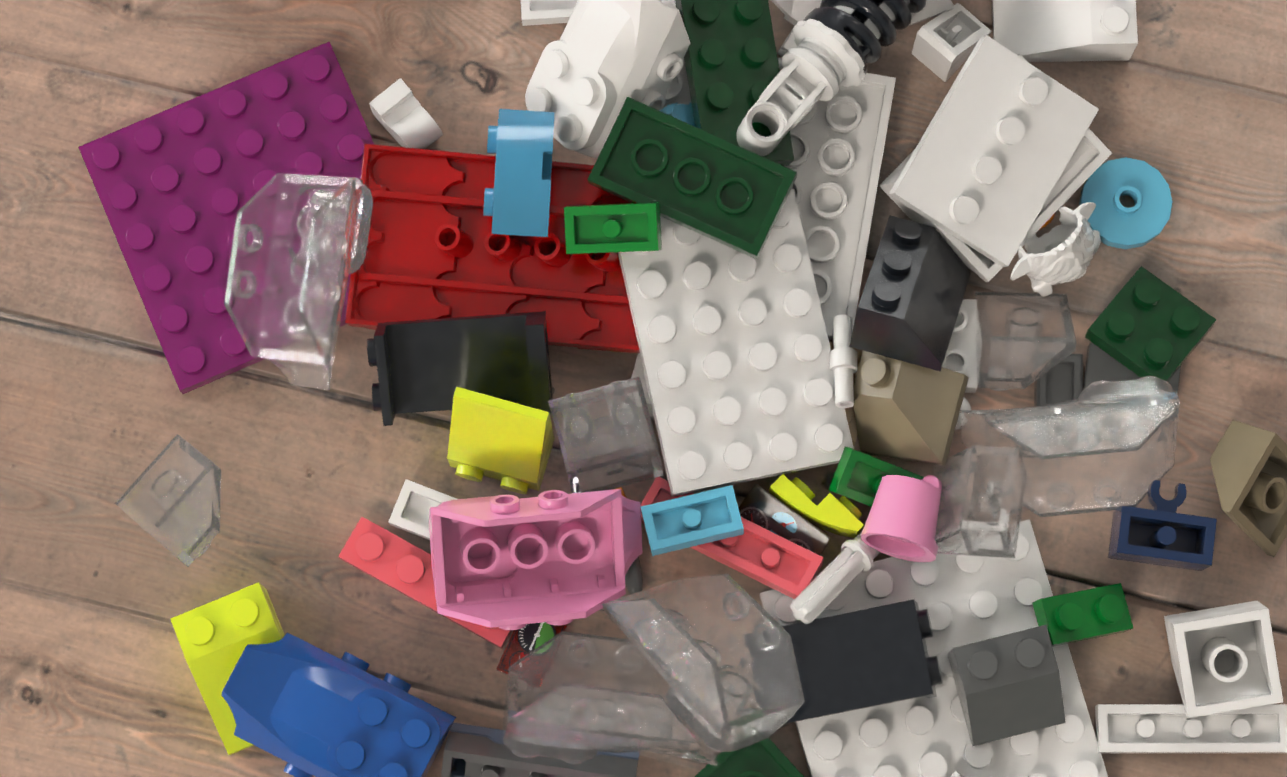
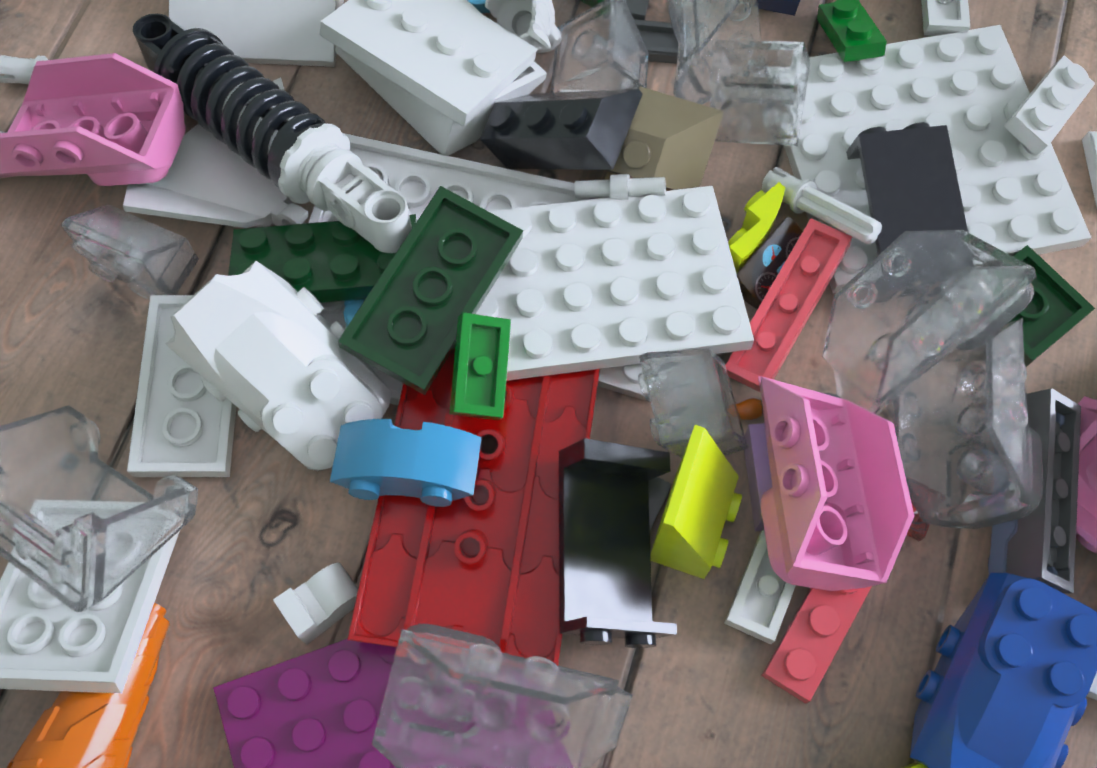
camera: 90 degrees left, 10 degrees down
(692, 520) = (779, 327): medium azure plate -> none
(861, 474) = (735, 173): green plate -> none
(905, 518) = (774, 139): bright pink hat -> none
(948, 41) = (317, 88): white slope -> none
(1008, 685) = (918, 78): dark grey slope -> none

